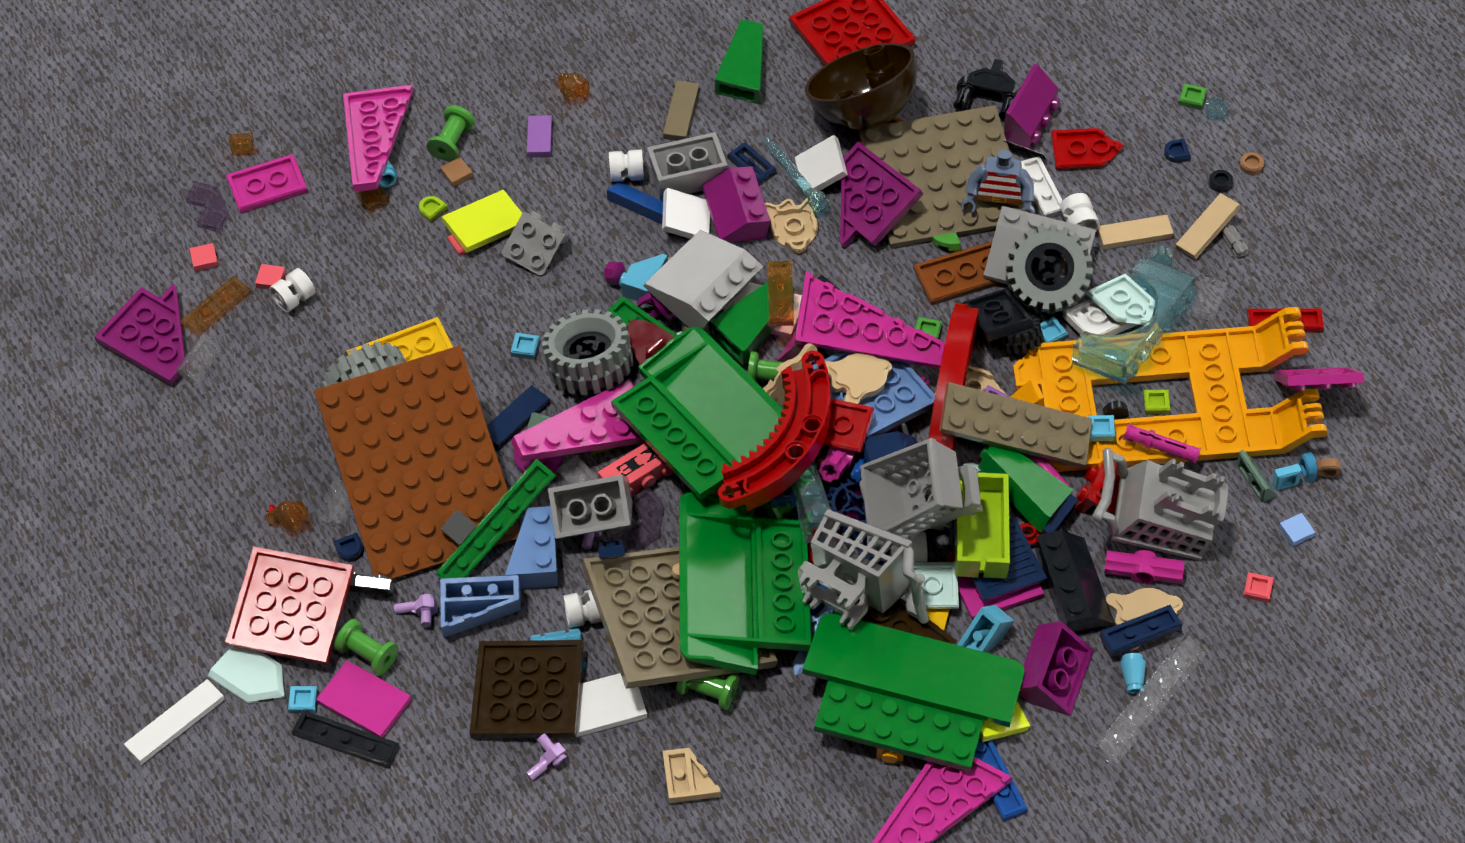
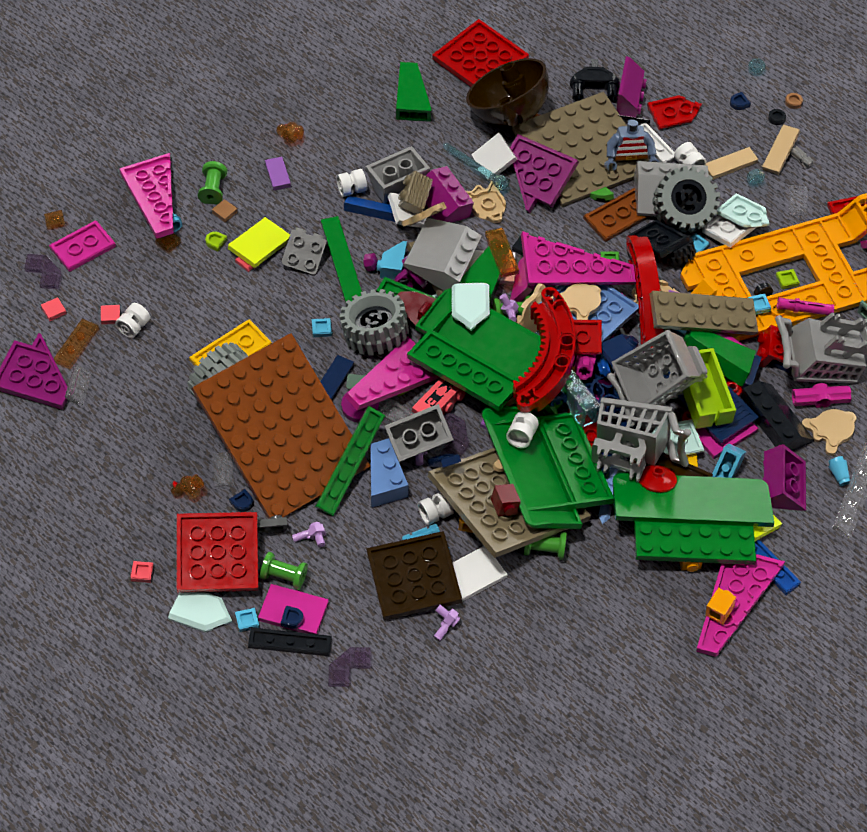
camera: 20 degrees left, 0 degrees up
(174, 722) = (154, 658): white tile -> none
(196, 610) = (142, 571): none -> coral tile
(355, 709) = (292, 618): none -> dark blue tile
(415, 777) = (351, 659): none -> clear purple tile
(458, 527) = (324, 468): dark grey tile -> none
(477, 601) = (355, 519): medium blue wedge -> none
(581, 259) = (341, 258): none -> green tile
(665, 616) = (505, 500): none -> dark red brick
(681, 110) = (376, 136): dark tan tile -> none
(686, 777) = (552, 613): tan wing -> none
(697, 193) = (415, 192): none -> dark tan brick
(697, 224) = (425, 214): none -> tan tile
(713, 352) = (470, 303): none -> light aqua tile
(719, 530) = (522, 429): none -> white wheel
(765, 367) = (509, 307): none -> lavender piece
(770, 170) = (441, 163): dark blue tile -> none
(879, 631) = (658, 479): none -> red dish
(903, 815) = (720, 605): none -> light orange brick
(1121, 355) = (756, 250): clear light blue arch -> none
(1140, 630) = (835, 440): dark blue tile -> none
(1192, 96) = (736, 61): bright green tile -> none

